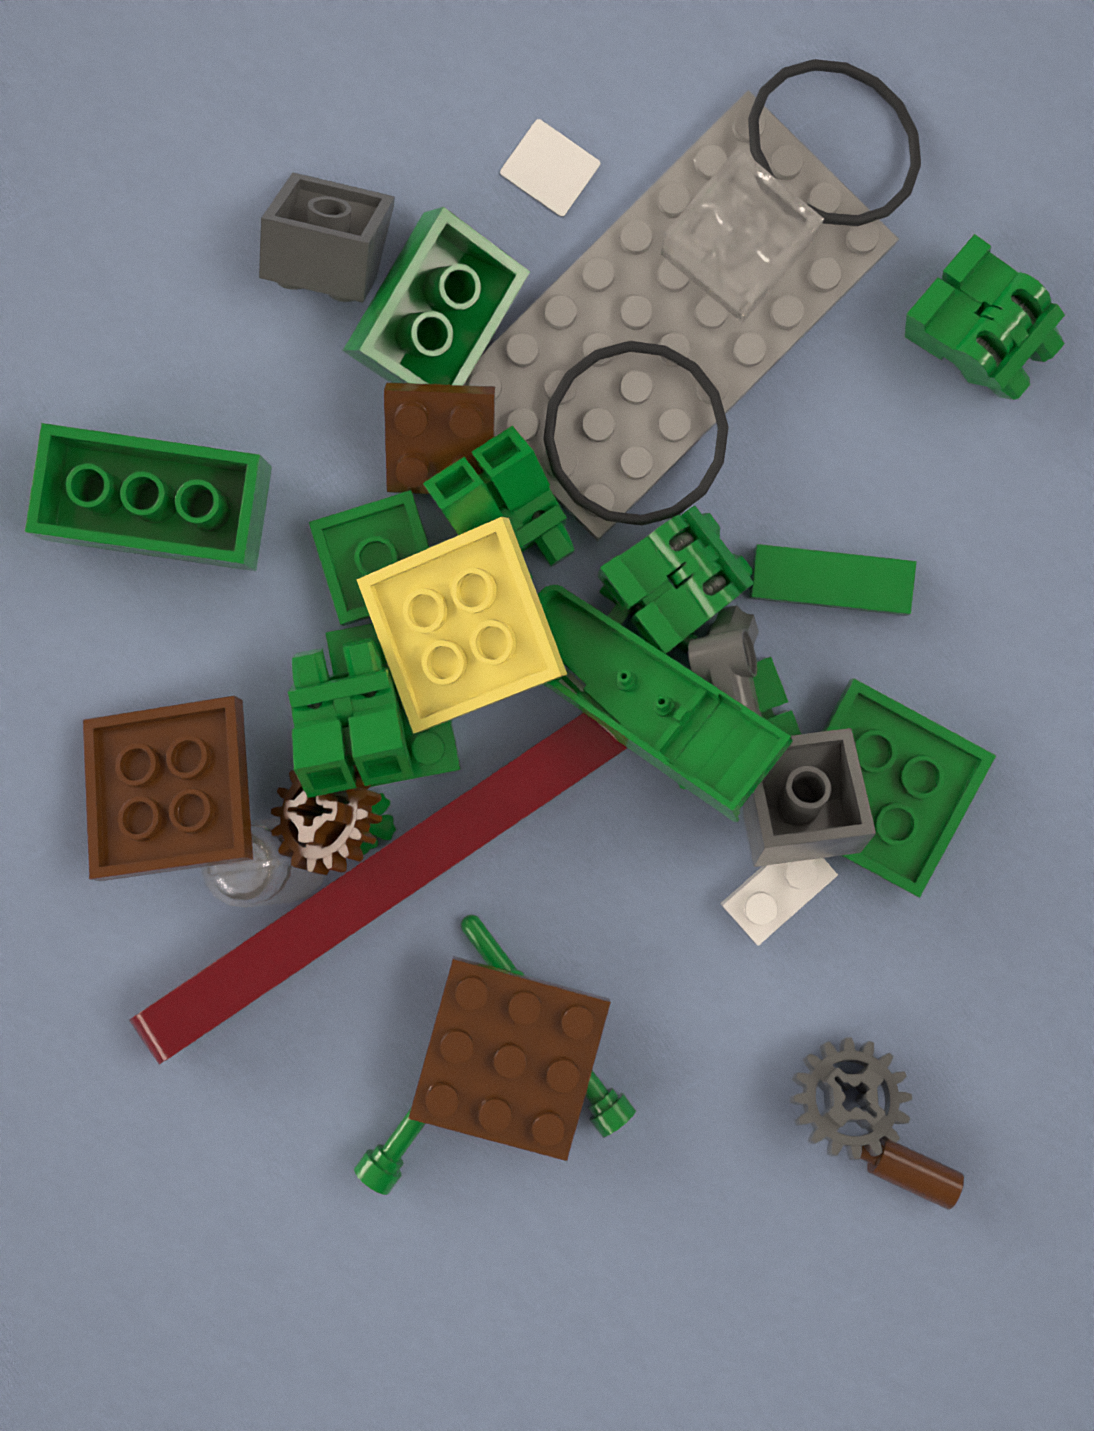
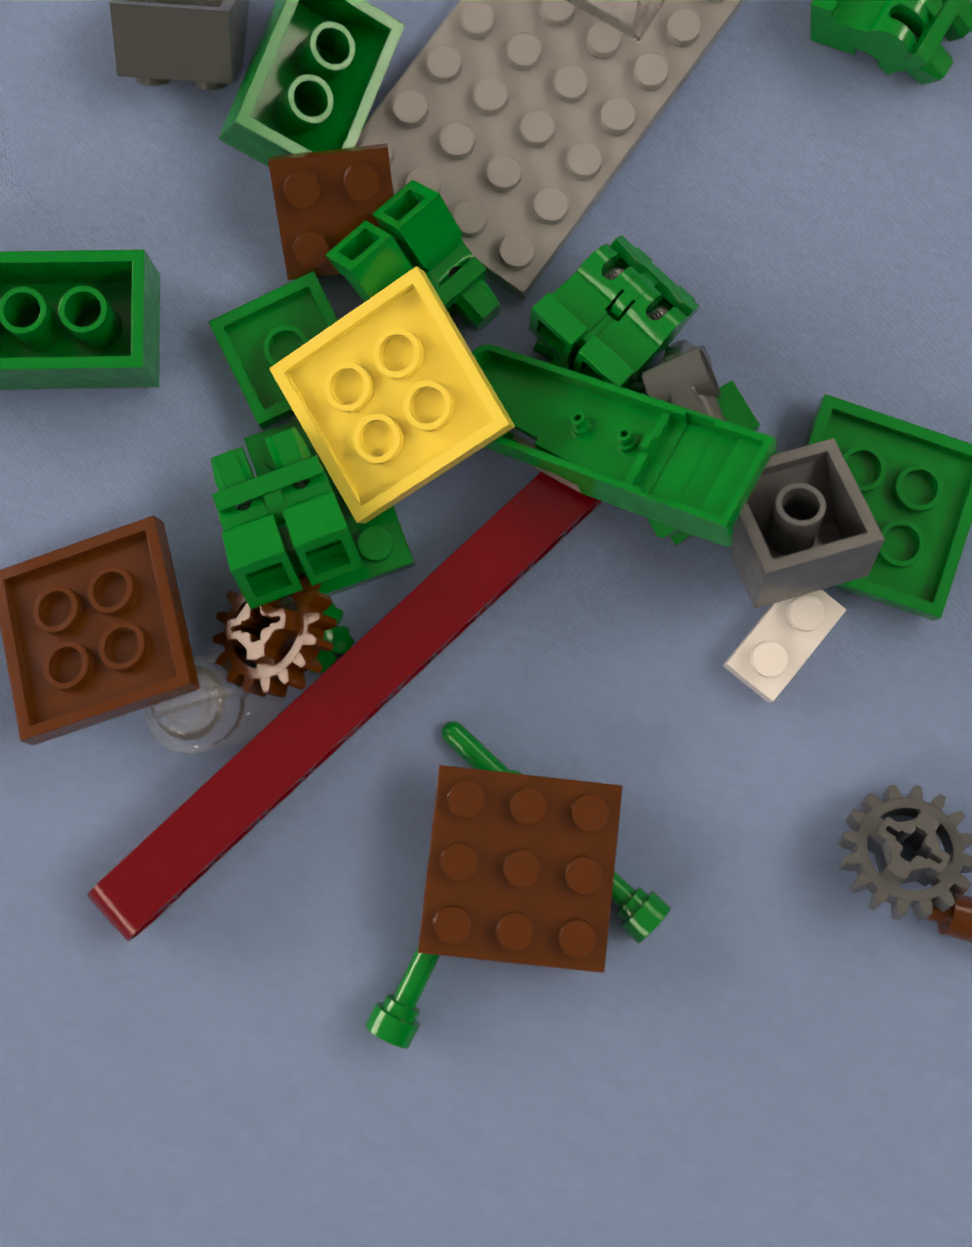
camera: 10 degrees left, 5 degrees down
(645, 348) = (543, 84): black piece -> none
(833, 579) = (782, 298): green tile -> none

